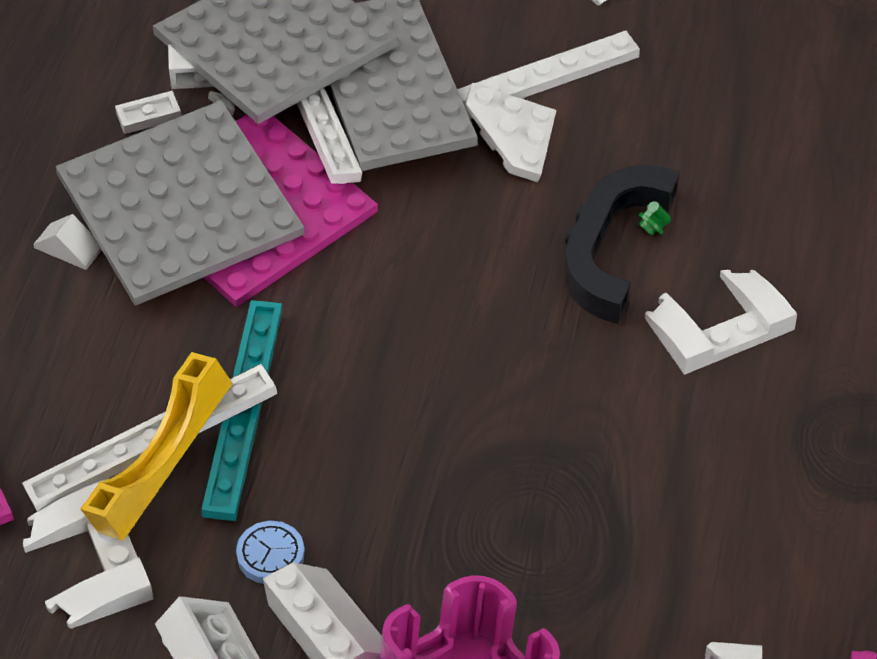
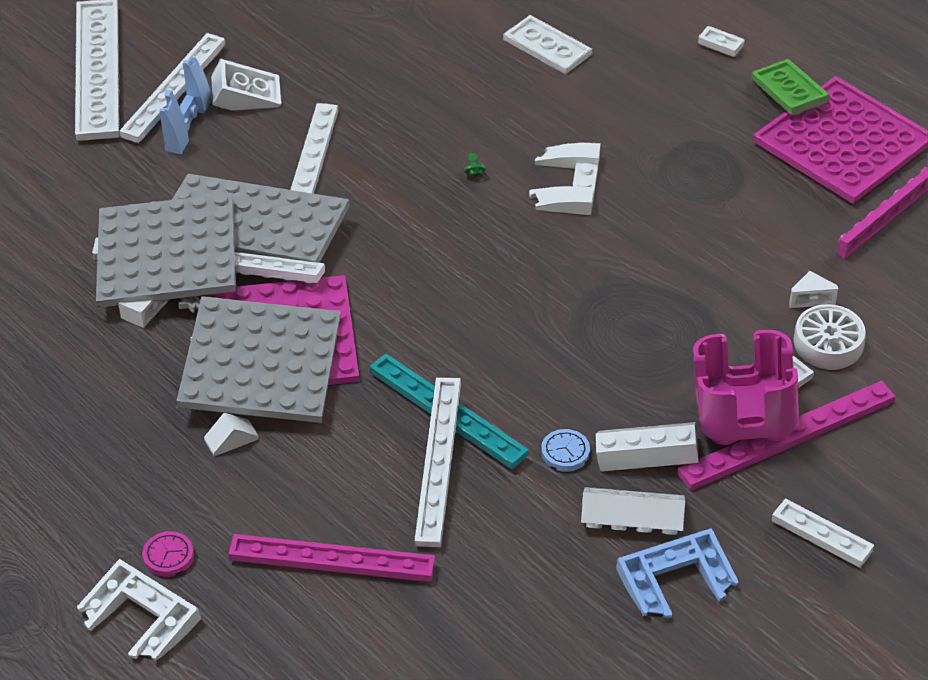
camera: 55 degrees left, 5 degrees down
(115, 589) = (466, 517): white wedge -> none
(147, 112) = (159, 344): white plate -> none
(194, 396) = (463, 450): yellow arch -> none
(513, 128) = (349, 184): white plate -> none
(625, 188) = (479, 213): black arch -> none

